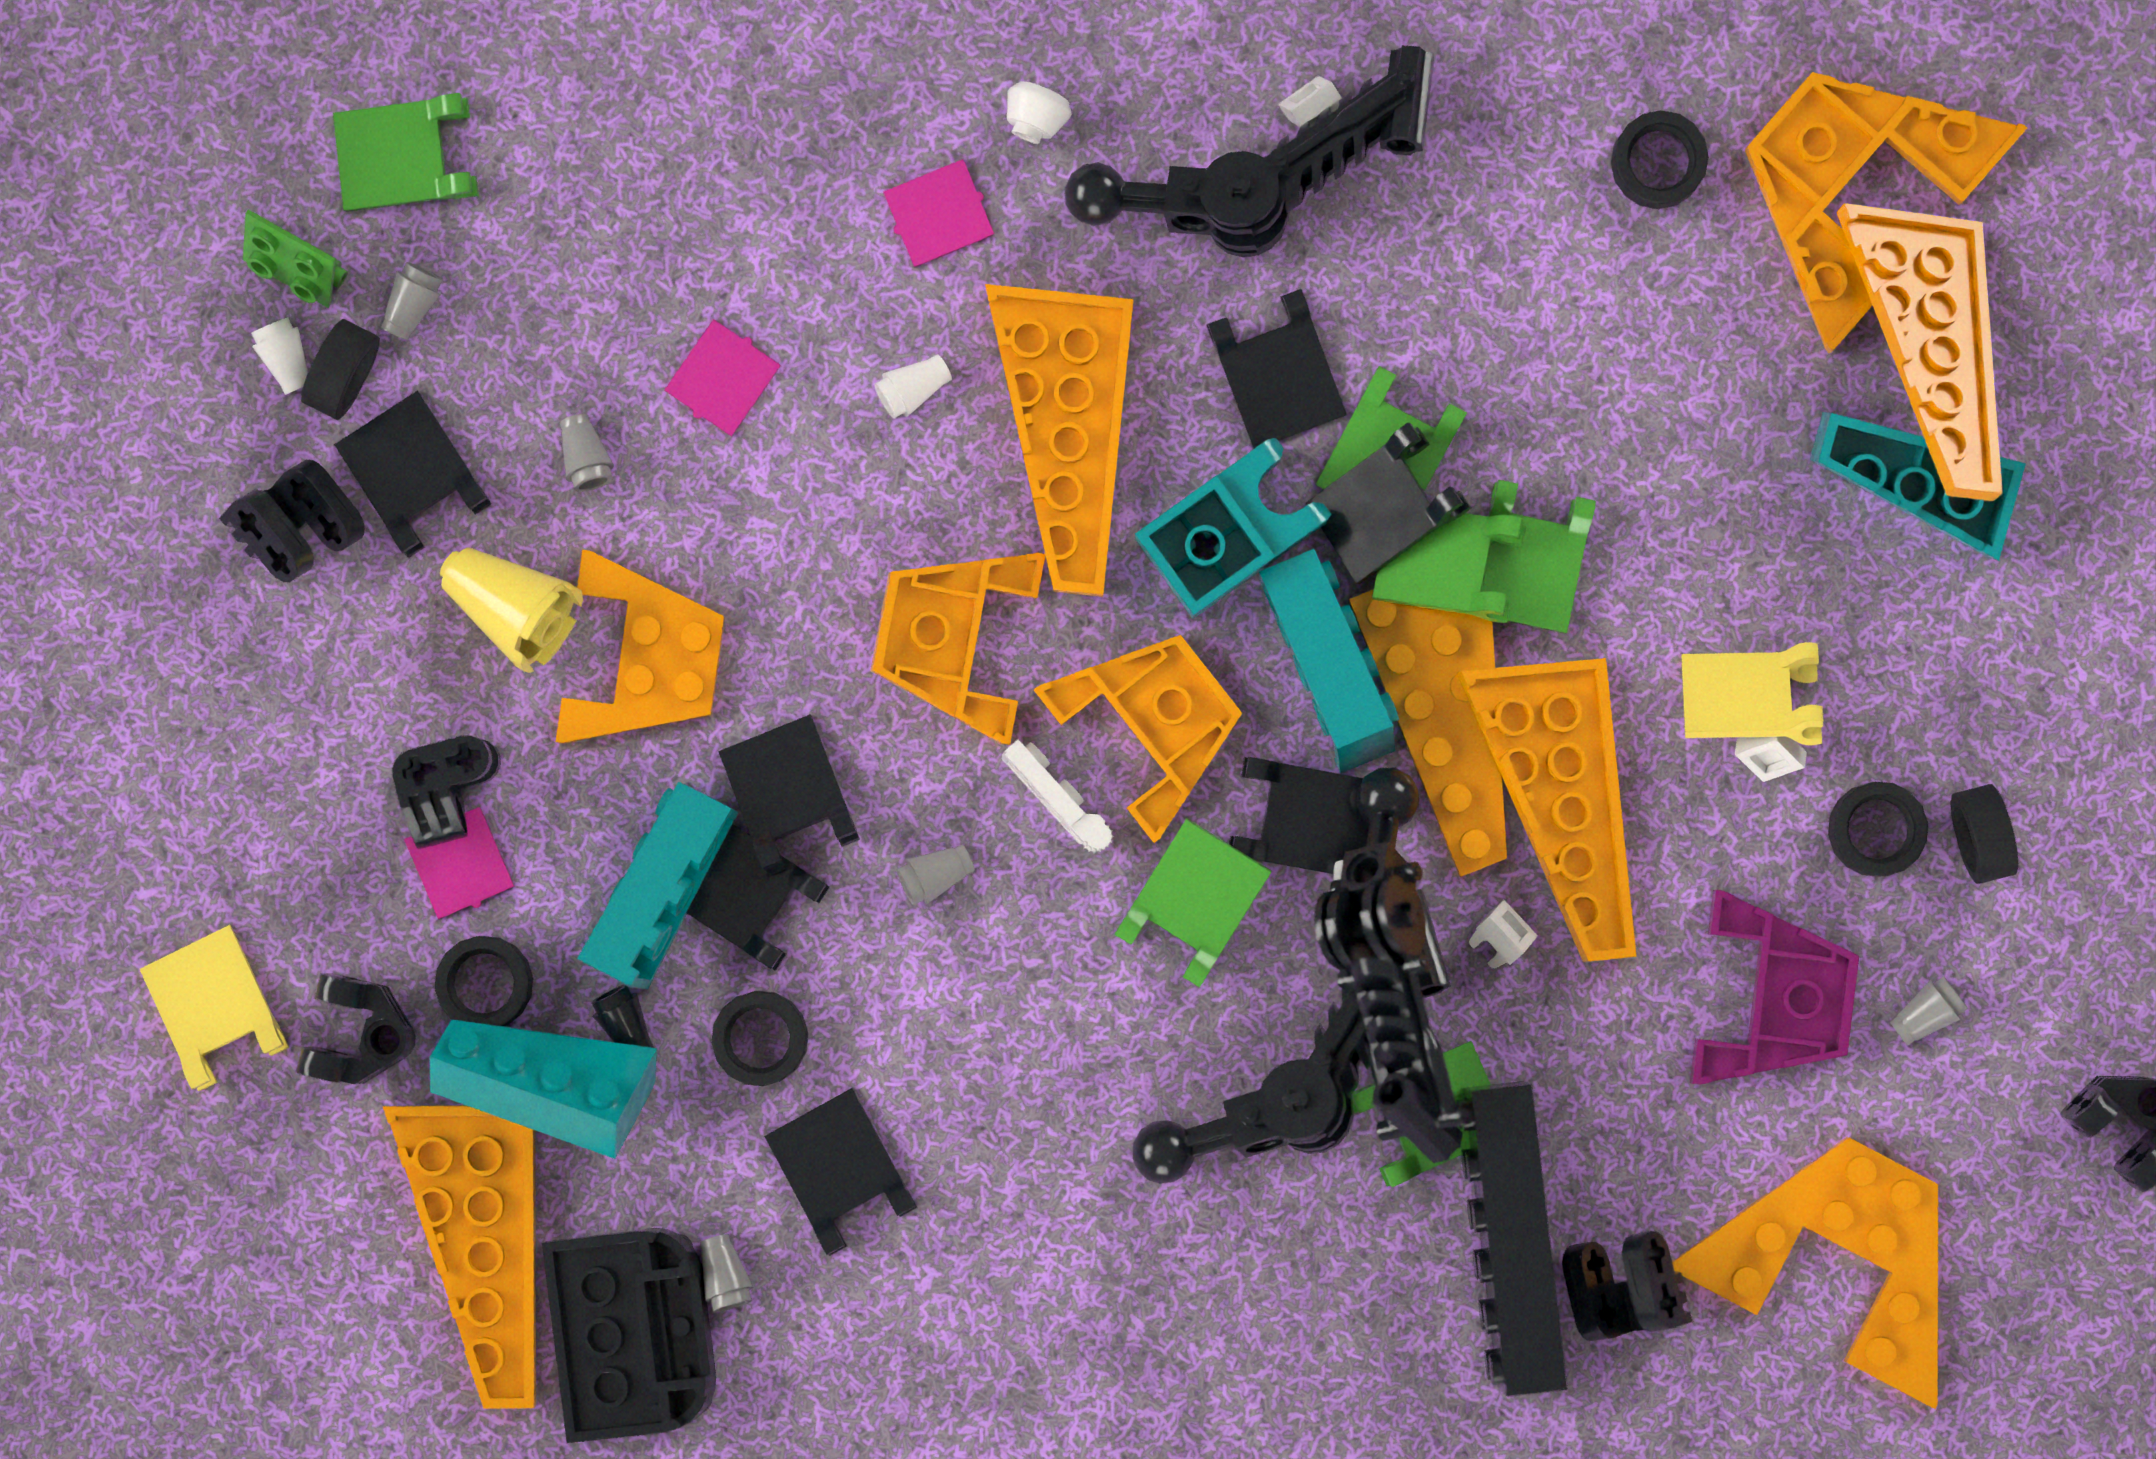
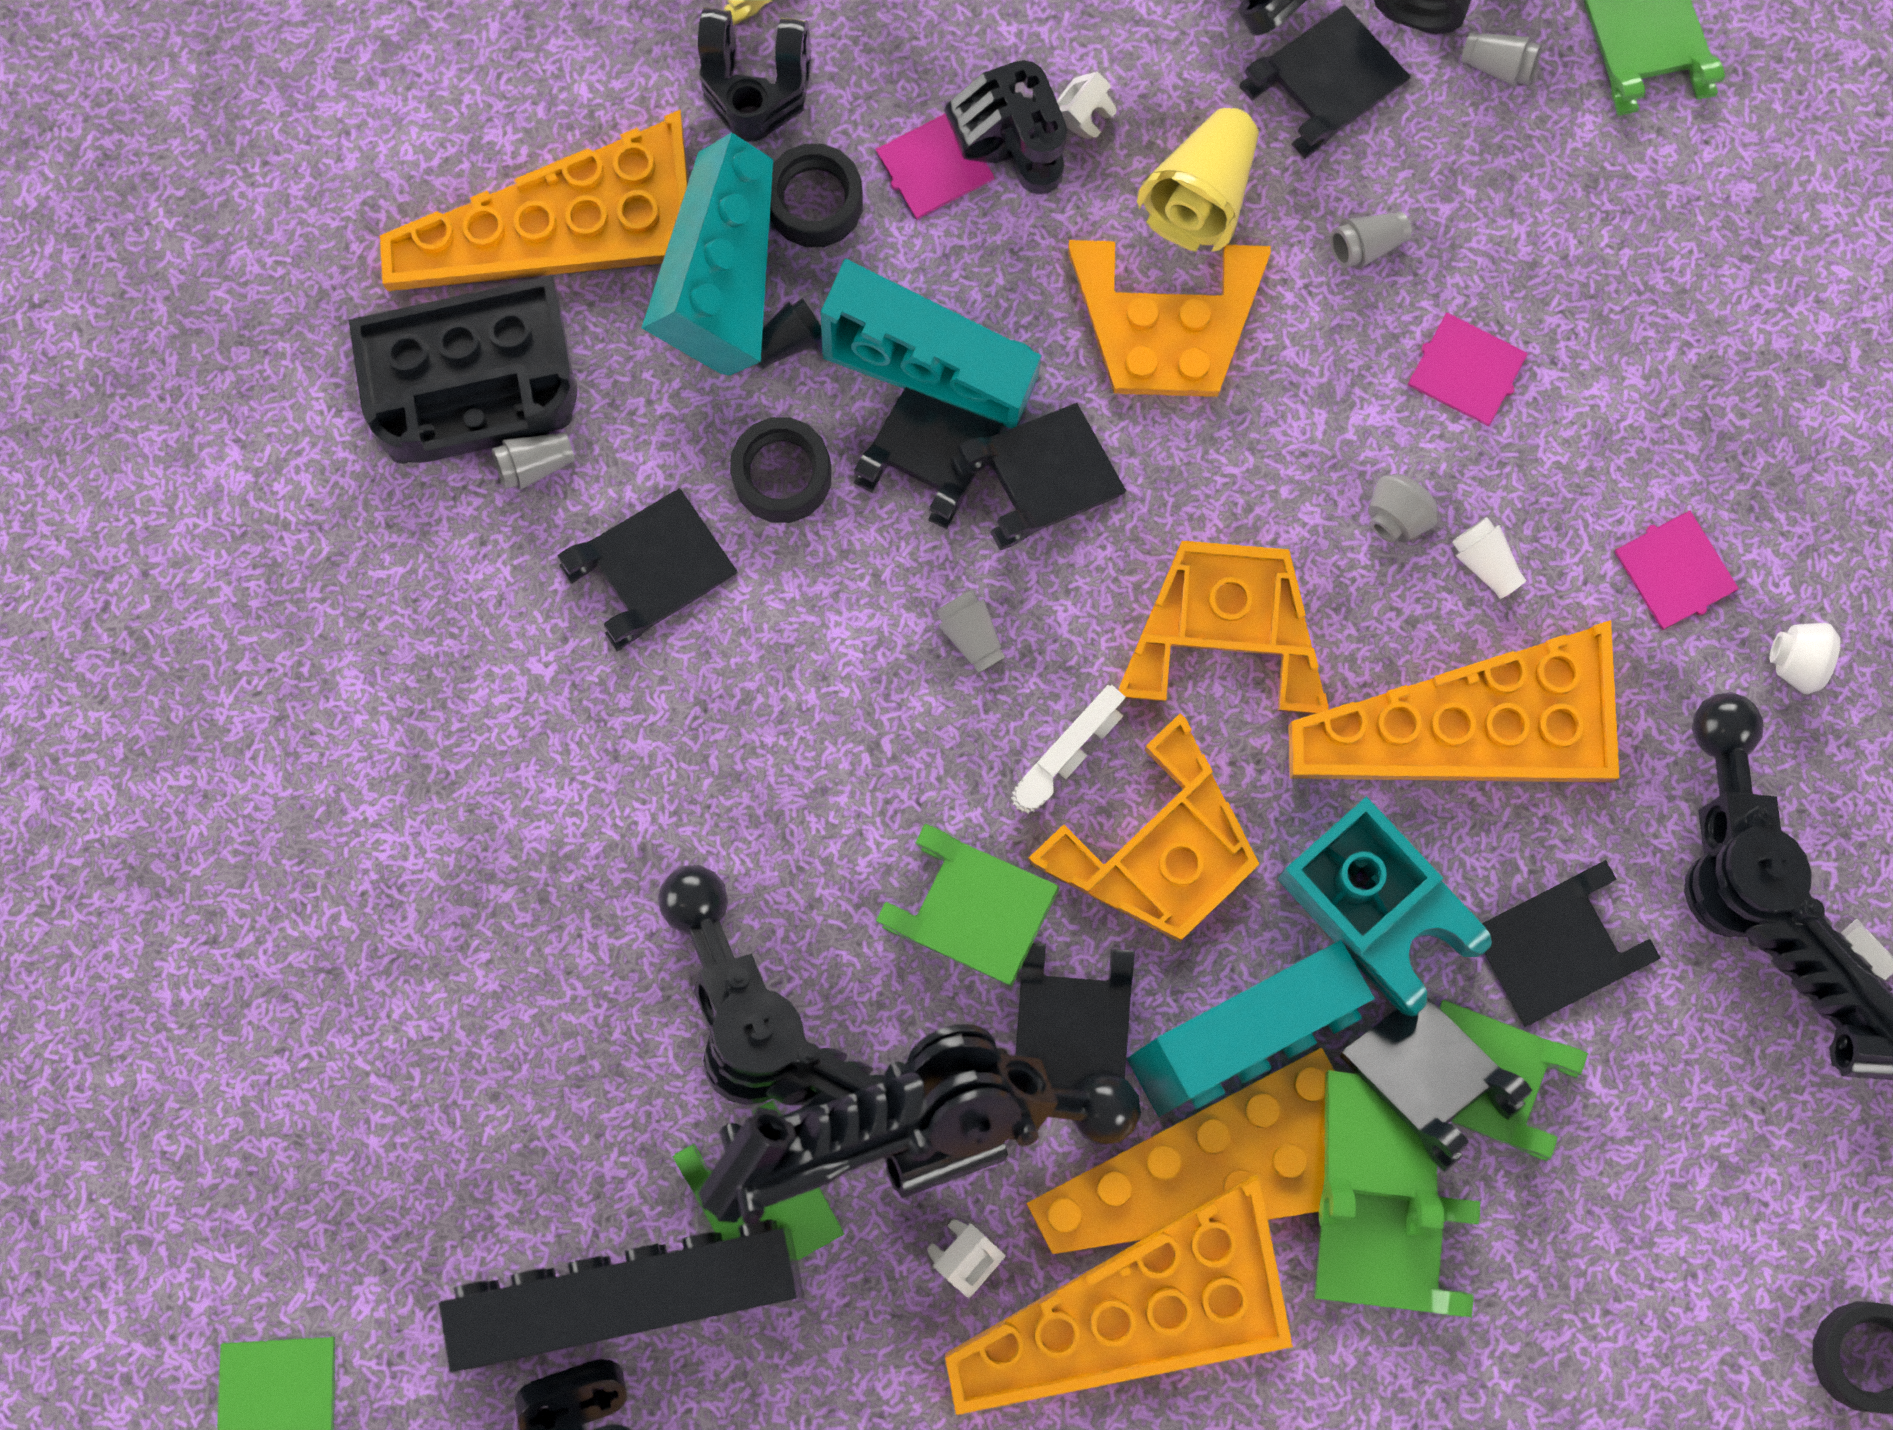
camera: 90 degrees right, 10 degrees down
(415, 716) = (1079, 101): none -> white tile
(859, 462) = (1401, 509): none -> light grey cone

